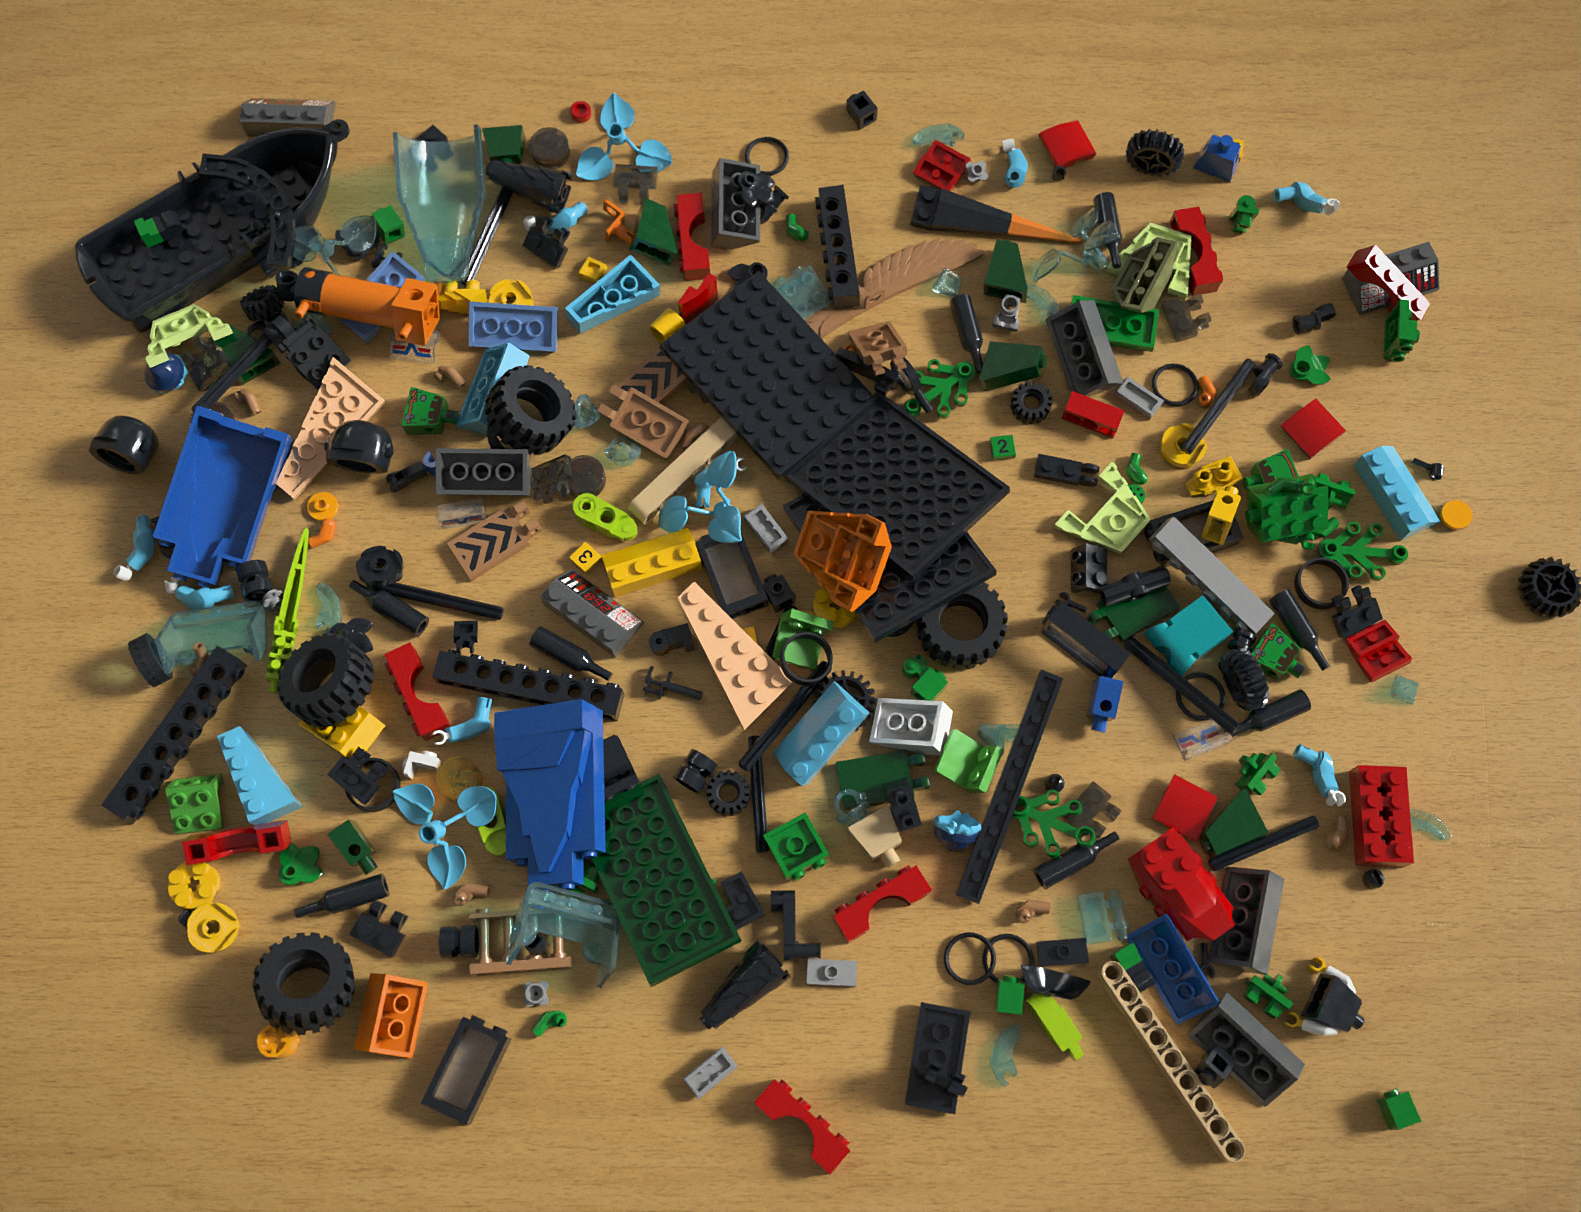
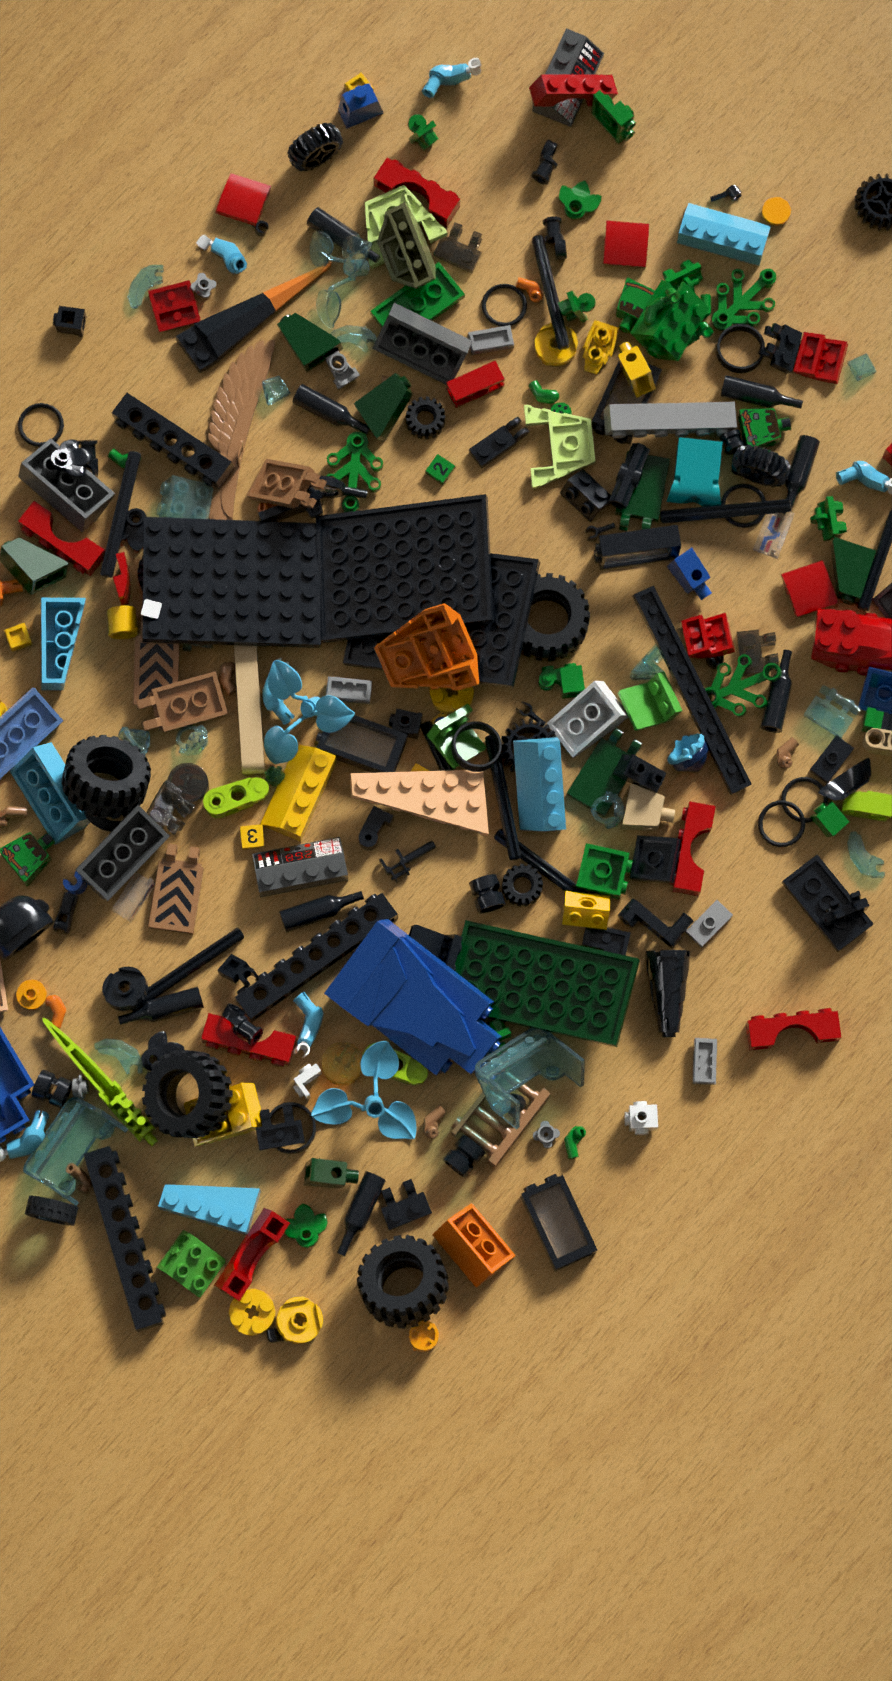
camera: 50 degrees left, 5 degrees up
(419, 673) = (242, 1025): none -> black connector
(621, 1068) = (648, 1112): none -> white brick
(647, 531) = (274, 775): none -> clear green plate
(688, 330) = (151, 609): none -> white sticker
(750, 861) = (586, 910): none -> yellow brick
(754, 254) = (120, 514): none -> black axle
(844, 880) = (655, 859): none -> black plate
(874, 679) = (528, 712): none -> black hand
(1067, 761) = (708, 636): none -> red slope
(1226, 432) = (576, 306): none -> green hips

